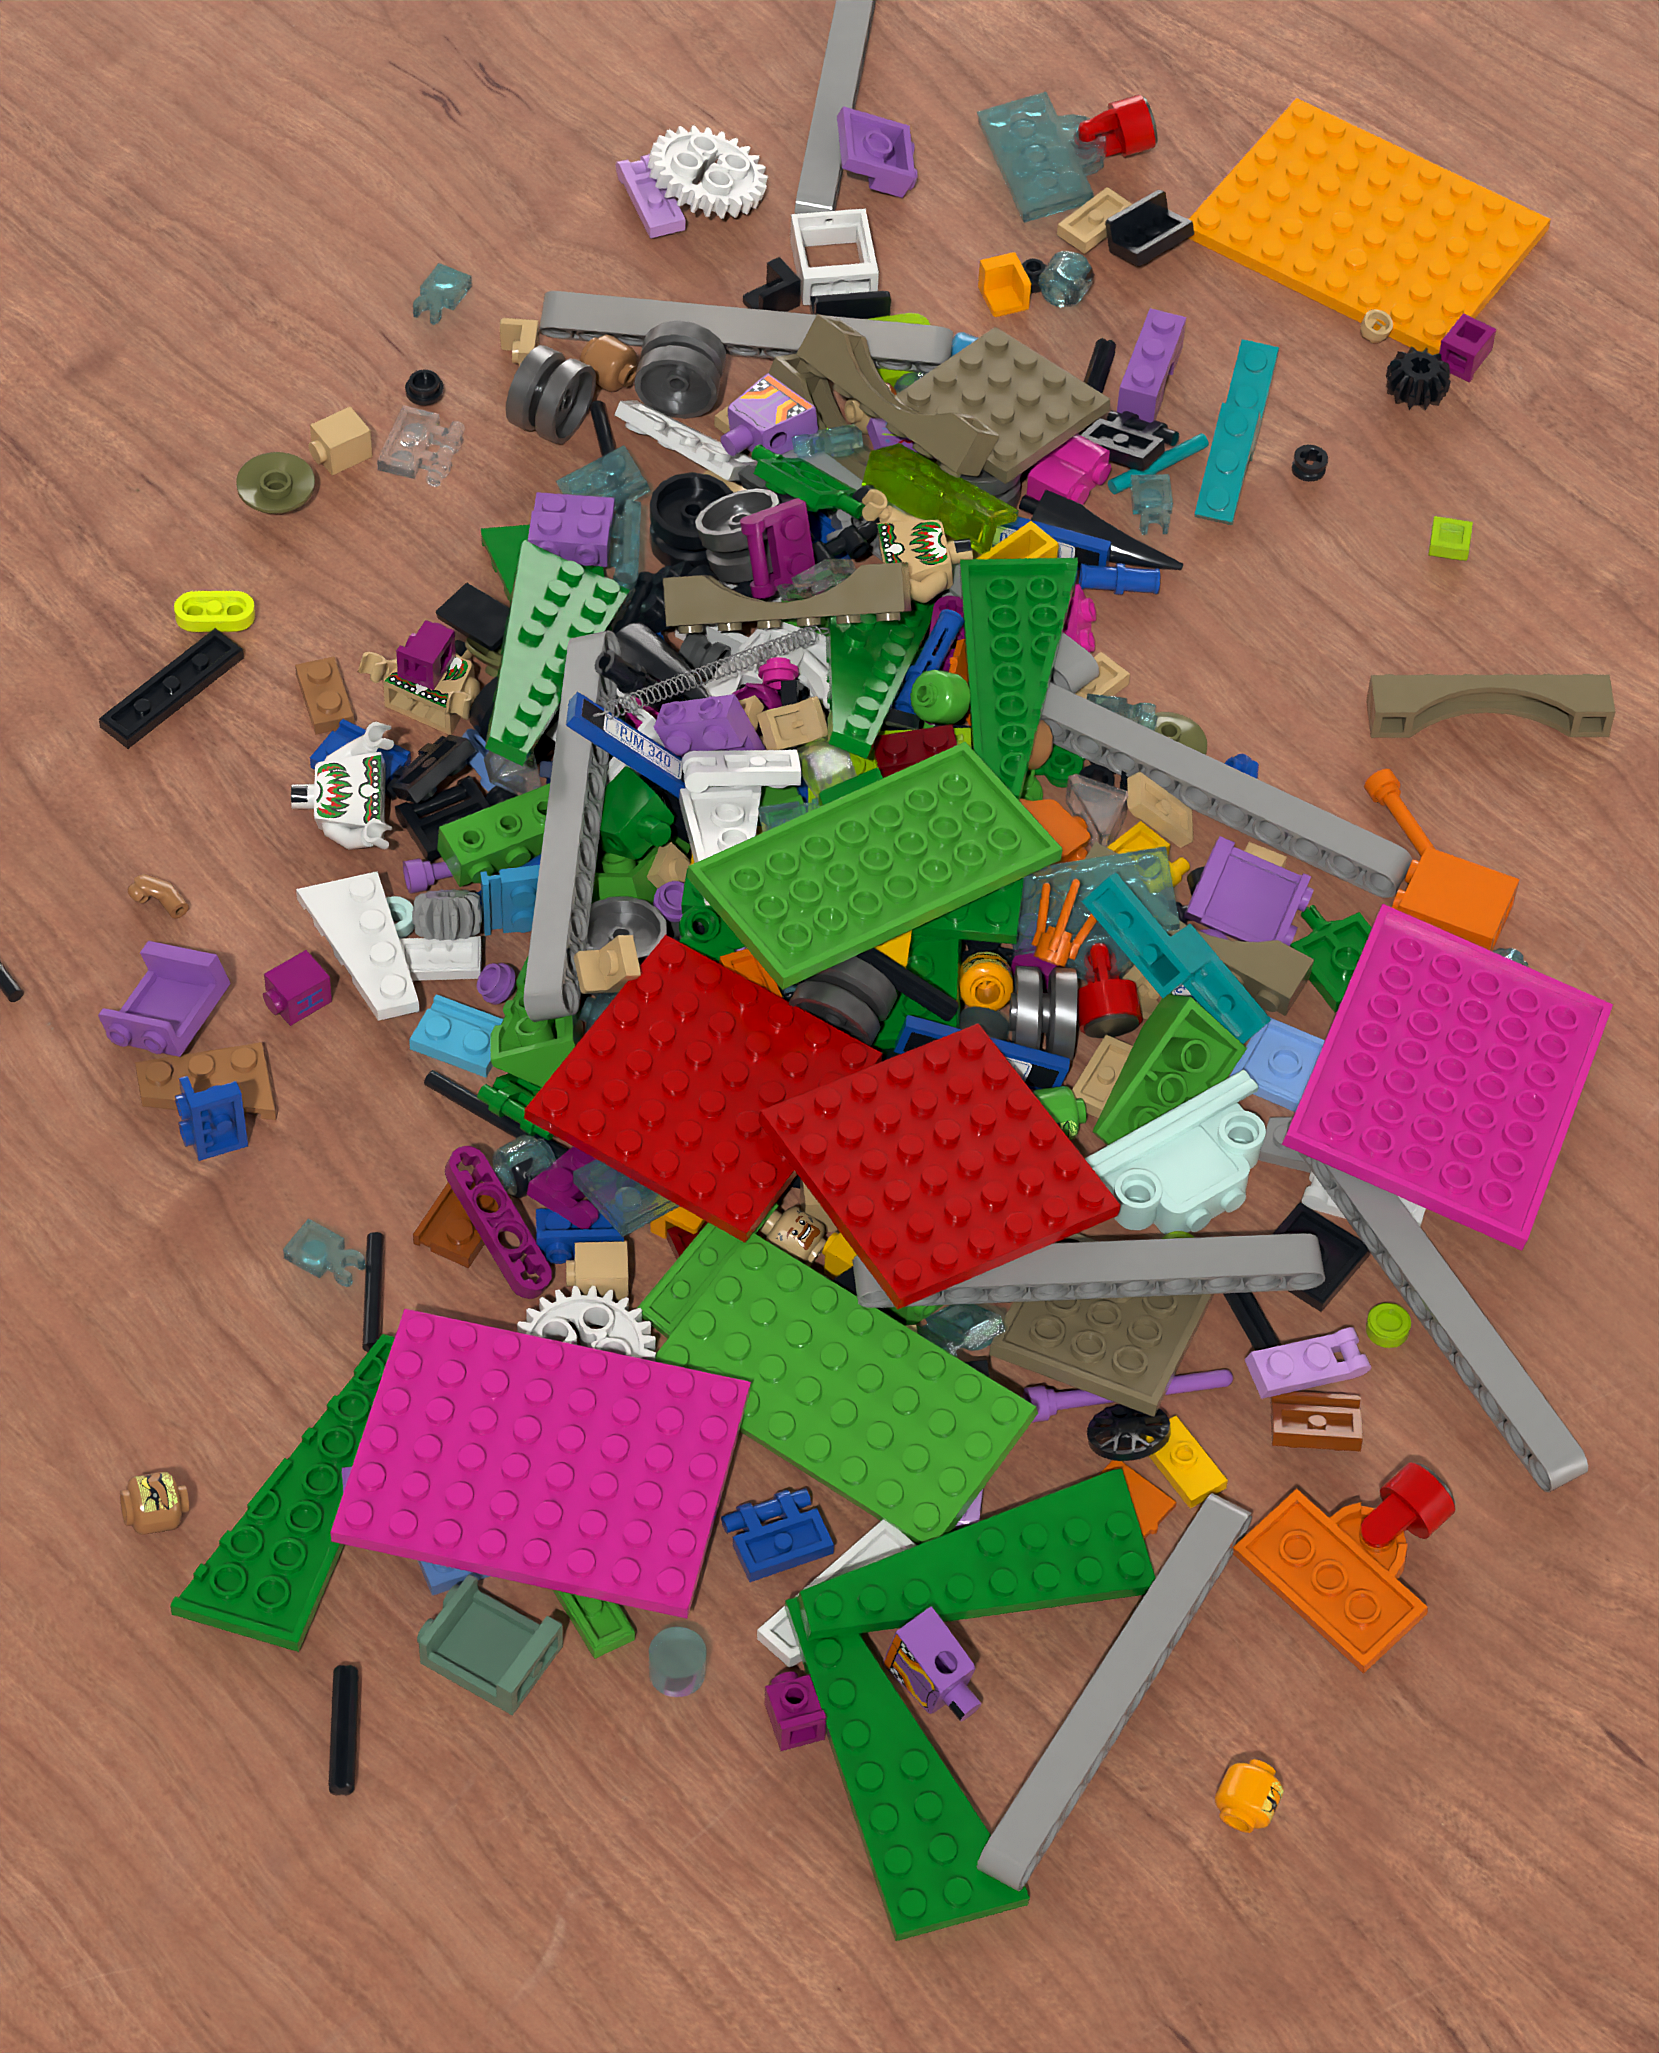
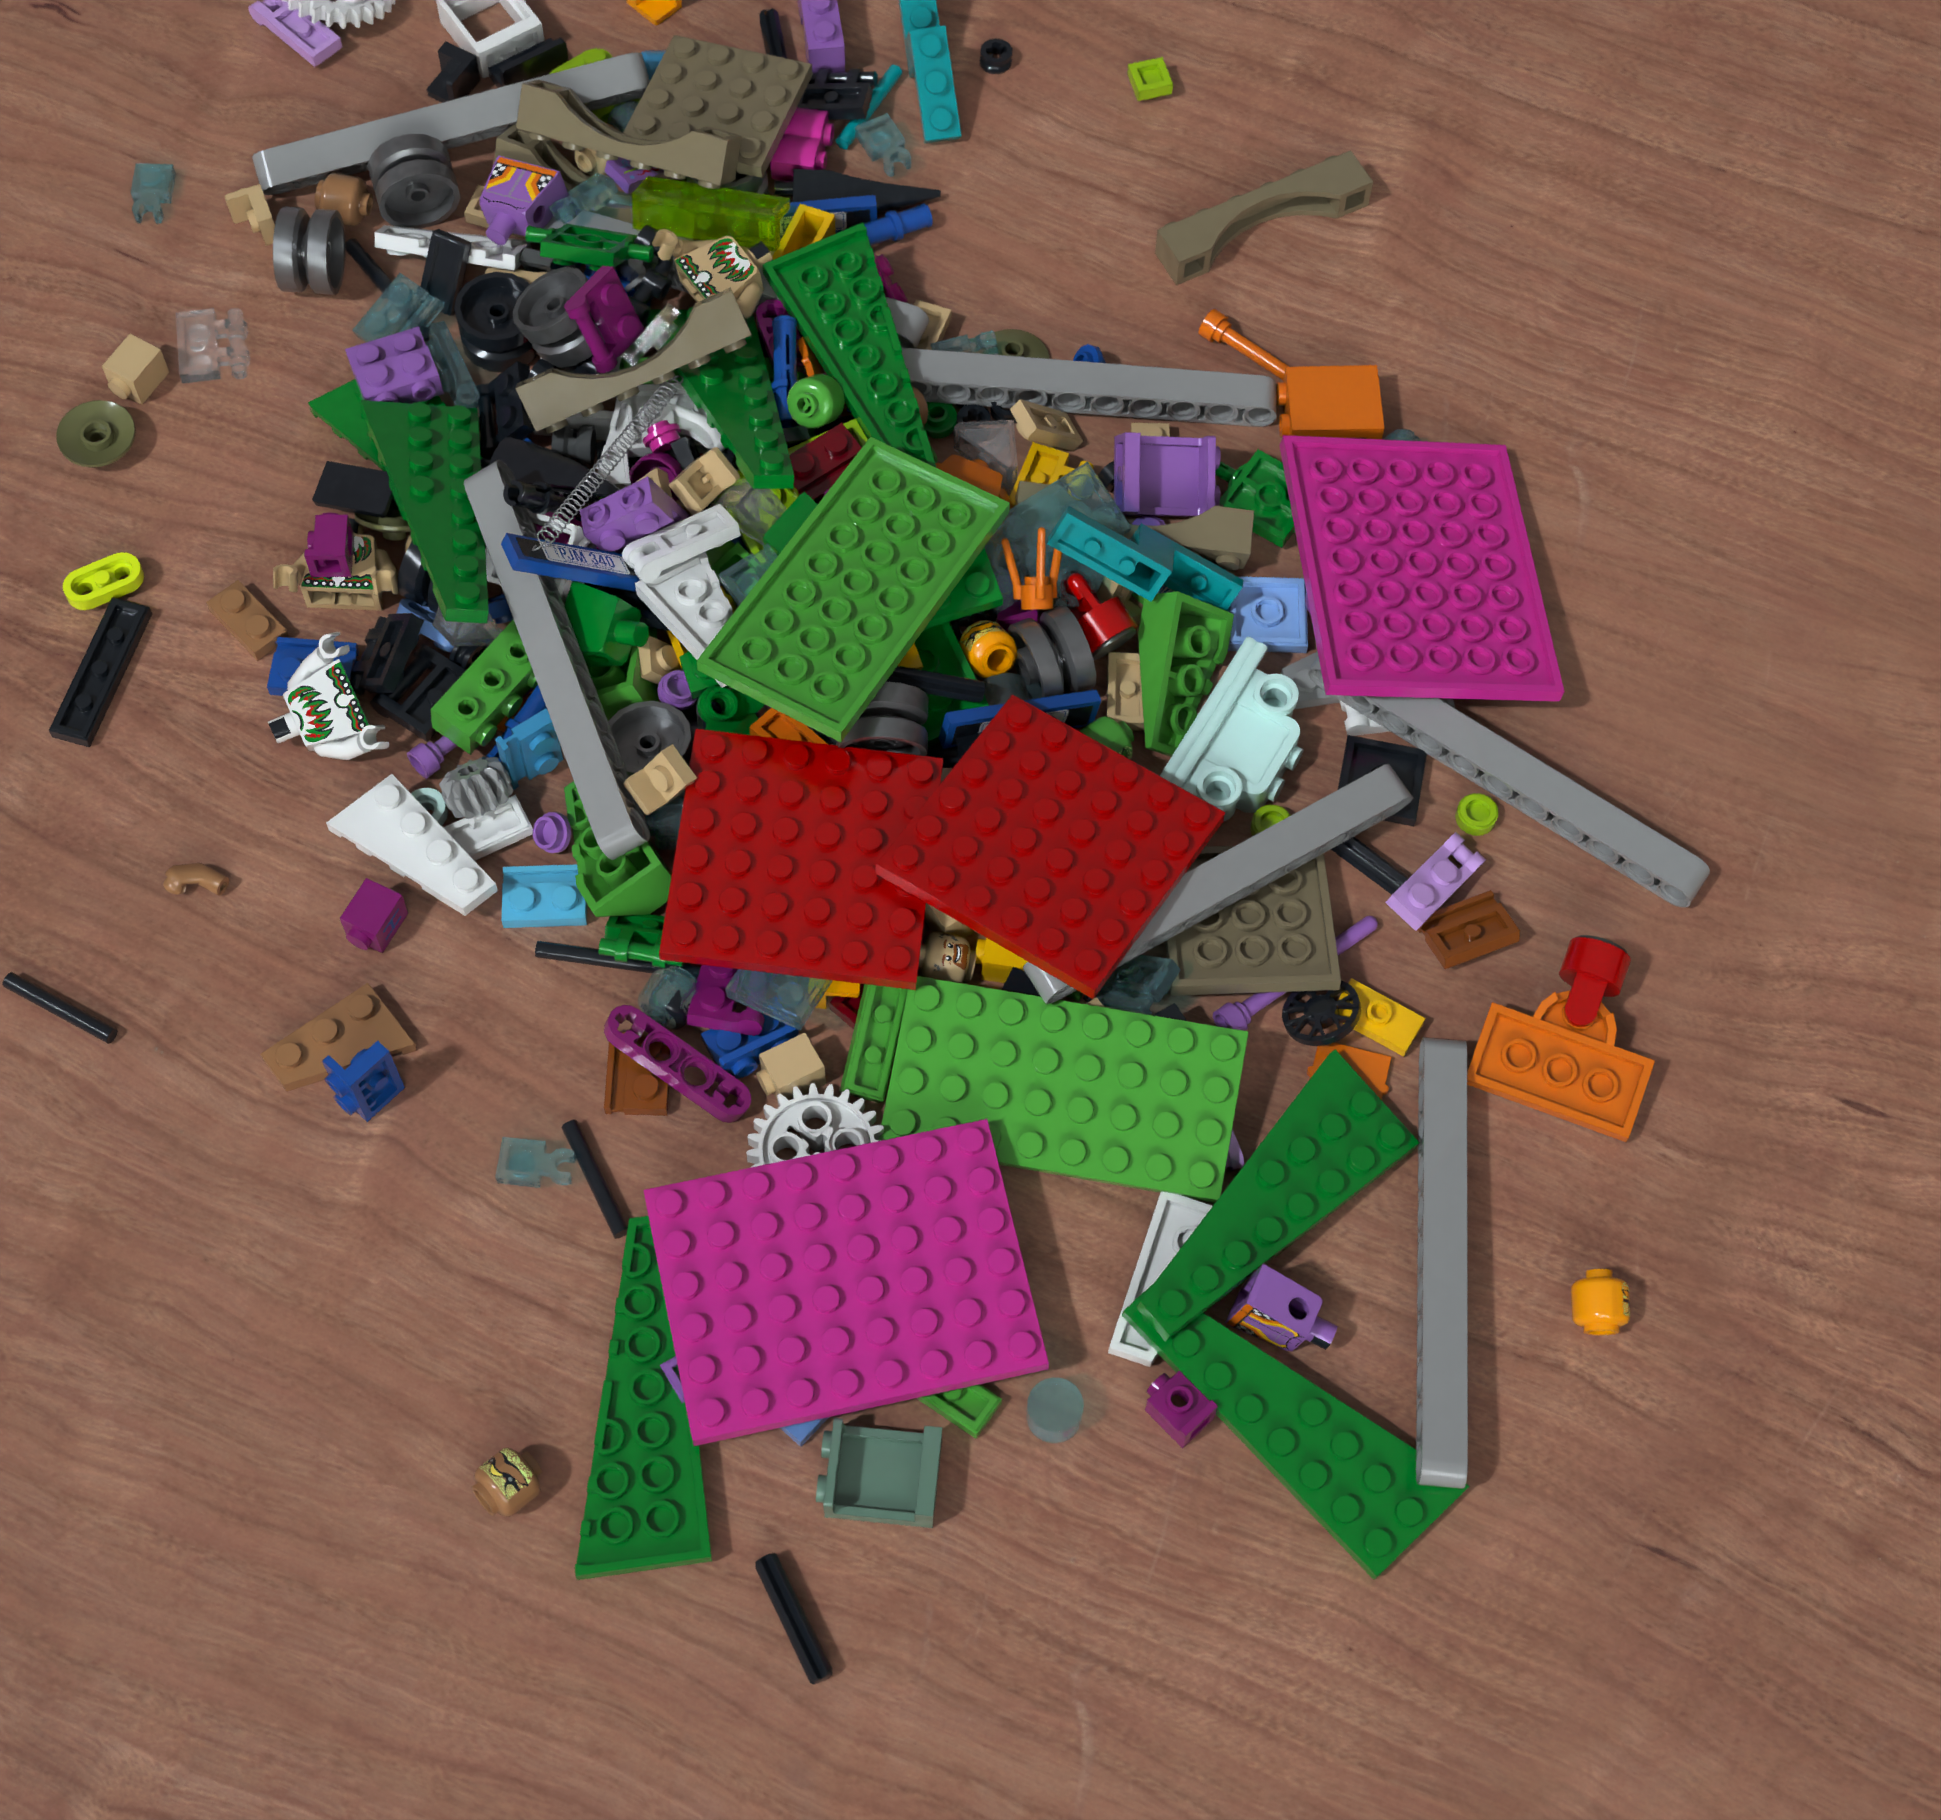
camera: 25 degrees left, 10 degrees up
(168, 1001) = (261, 982): medium lavender panel -> none
(424, 387) = (185, 288): black plate -> none
(668, 453) = (445, 268): none -> black tile
(780, 1544) = (1084, 1254): blue plate -> none

